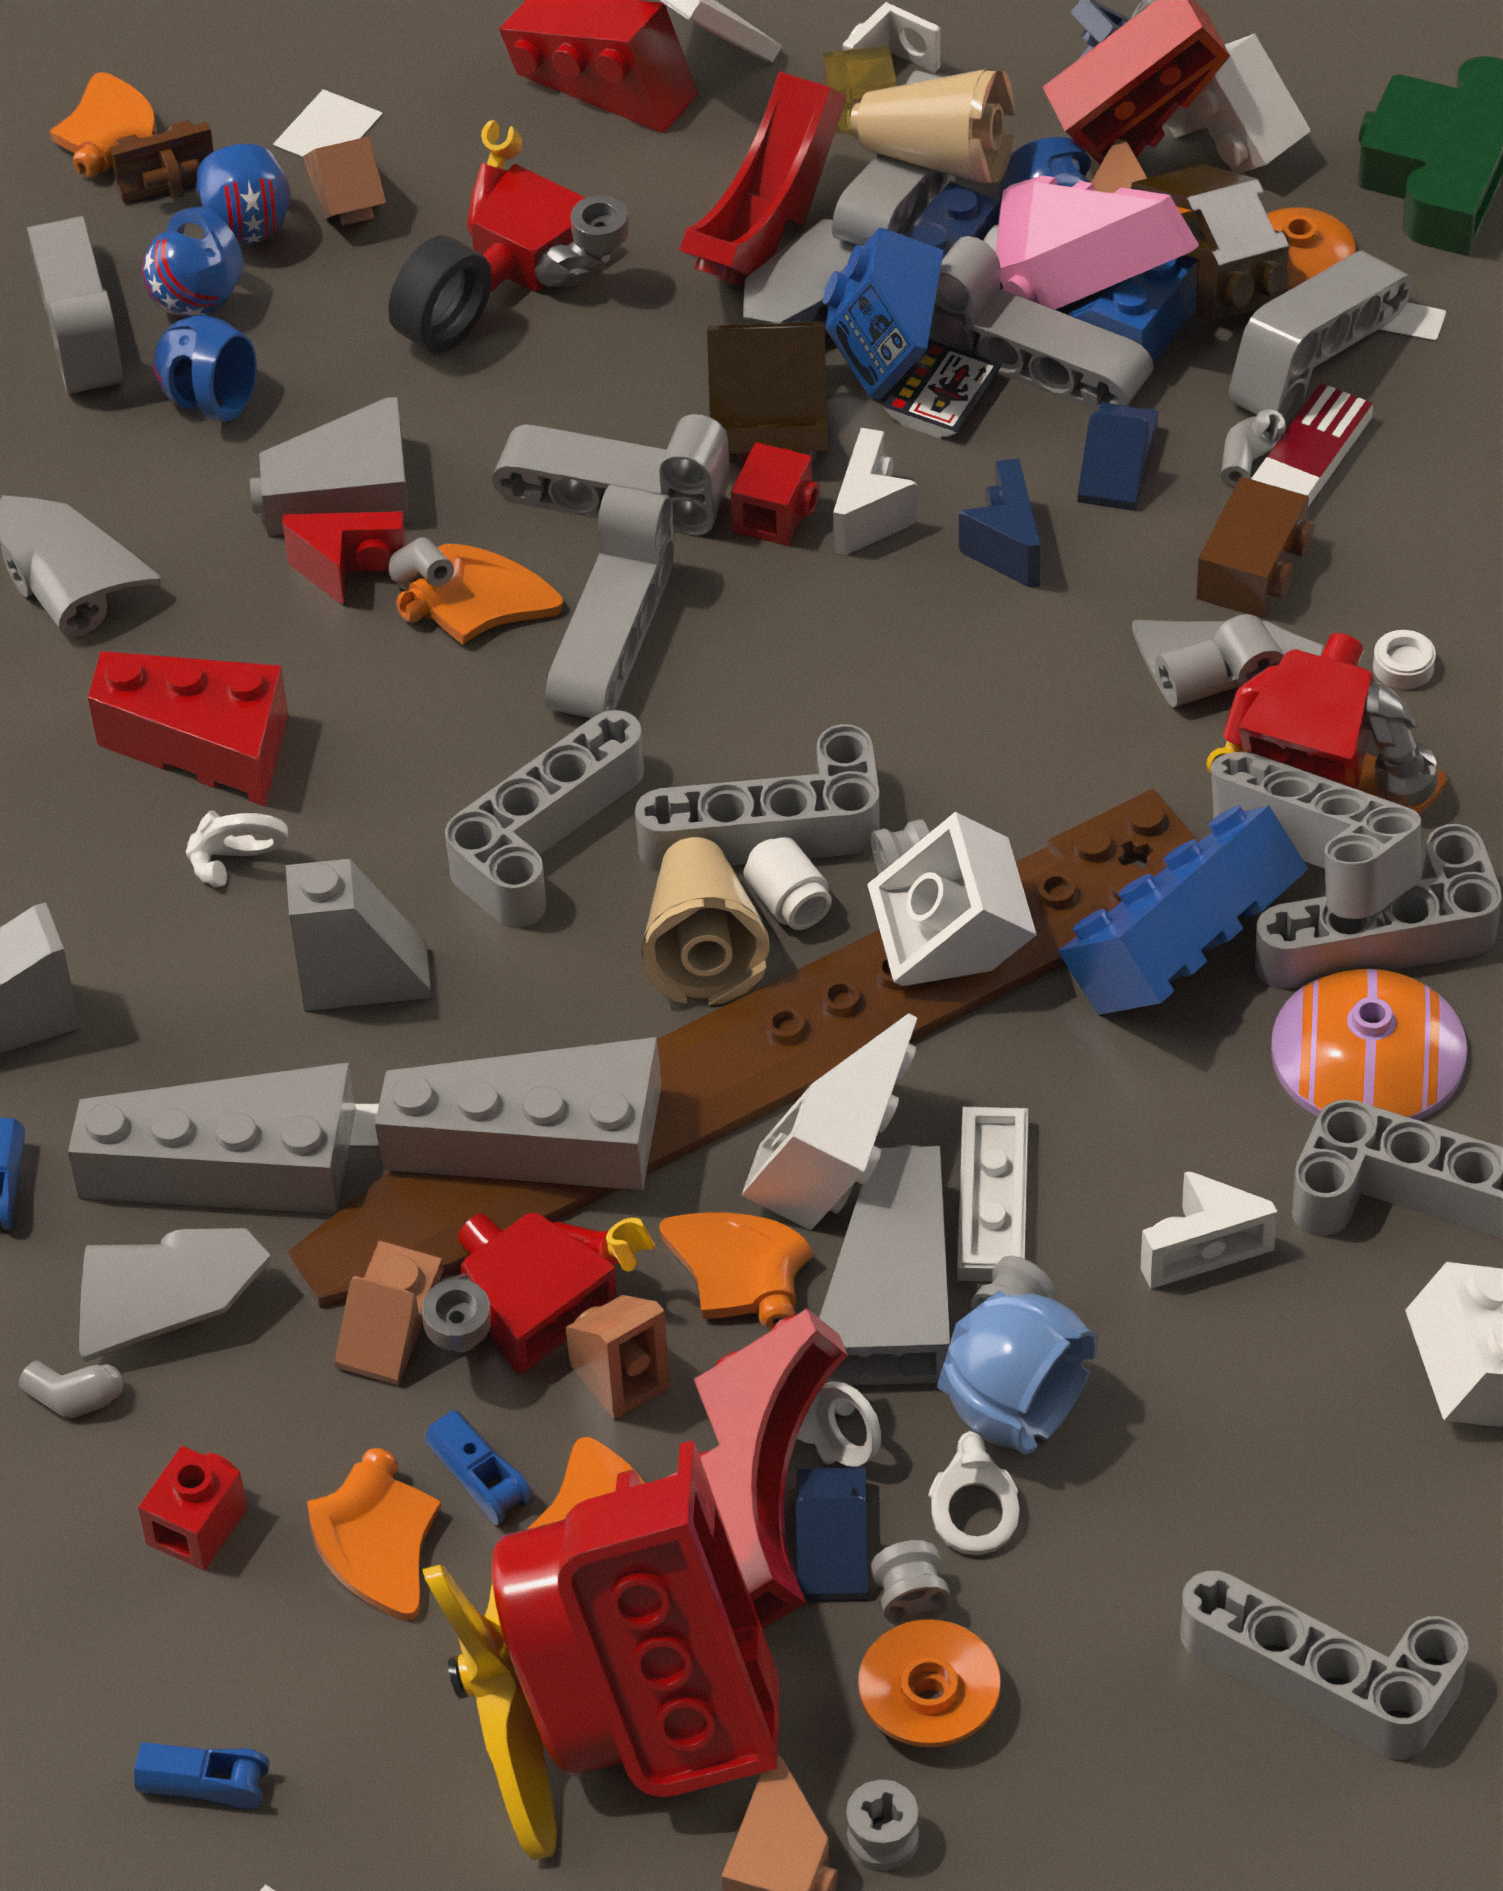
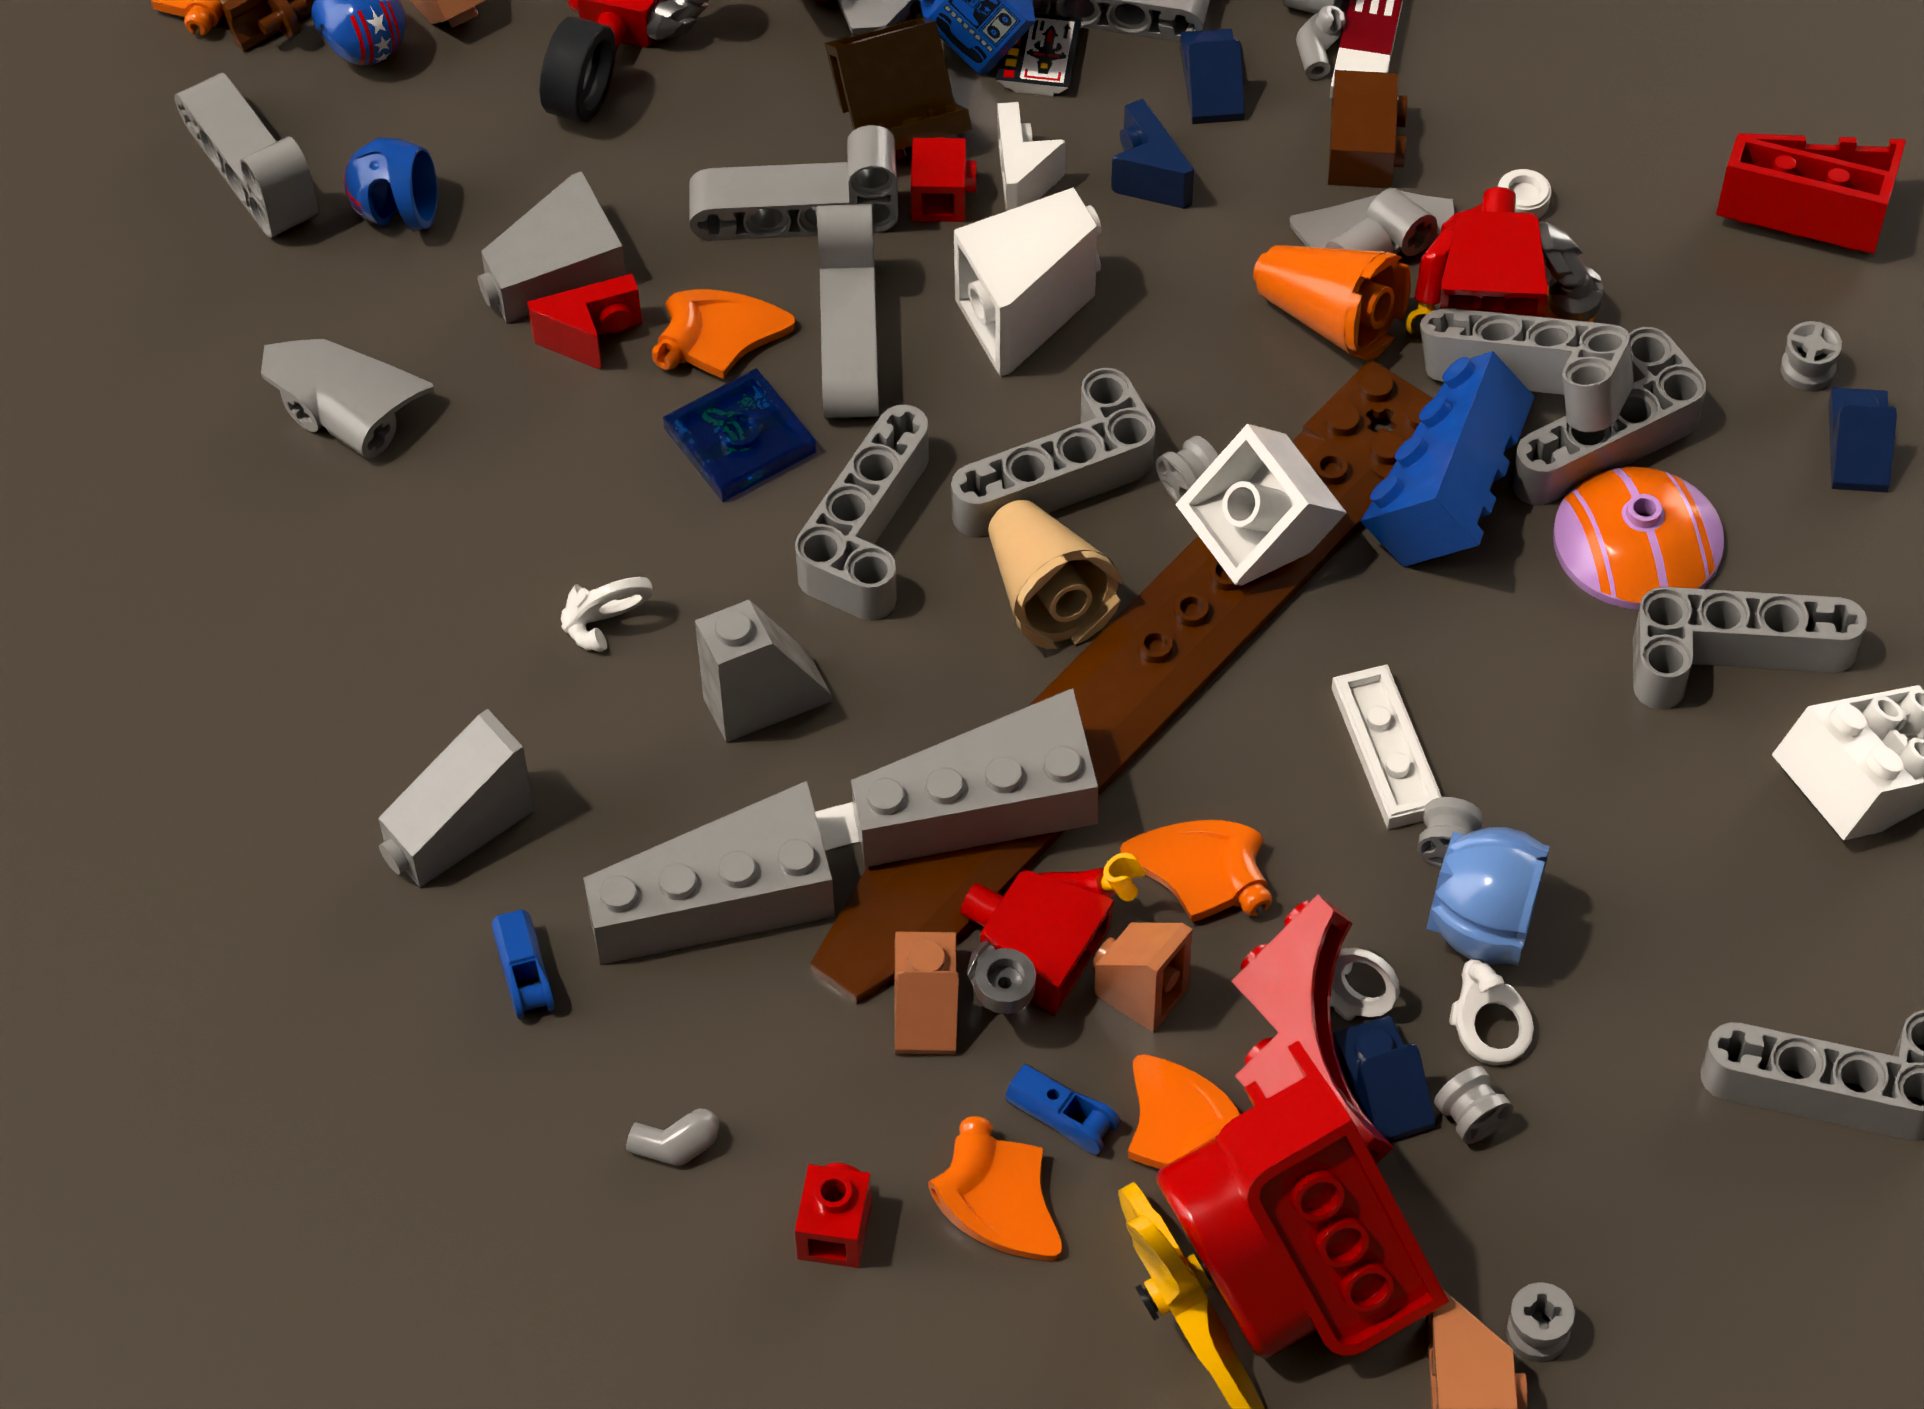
camera: 20 degrees left, 5 degrees up
(161, 1287) = (722, 1024): light grey panel -> none
(190, 273) = (342, 103): blue helmet -> none
(194, 715) = (521, 503): red wedge -> none
(420, 560) = (663, 311): light grey arm -> none
(453, 705) = (739, 434): none -> clear blue tile
(788, 883) = (1103, 519): white brick -> none
(816, 609) = (1026, 274): none -> white slope
(831, 1132) = (1248, 730): white slope -> none
(892, 1275) = (1344, 834): light grey slope -> none
(925, 1658) = (1530, 1164): orange dish -> none
(1145, 712) = (1338, 293): none -> orange cone
(1218, 1230) = (1586, 727): white slope -> none

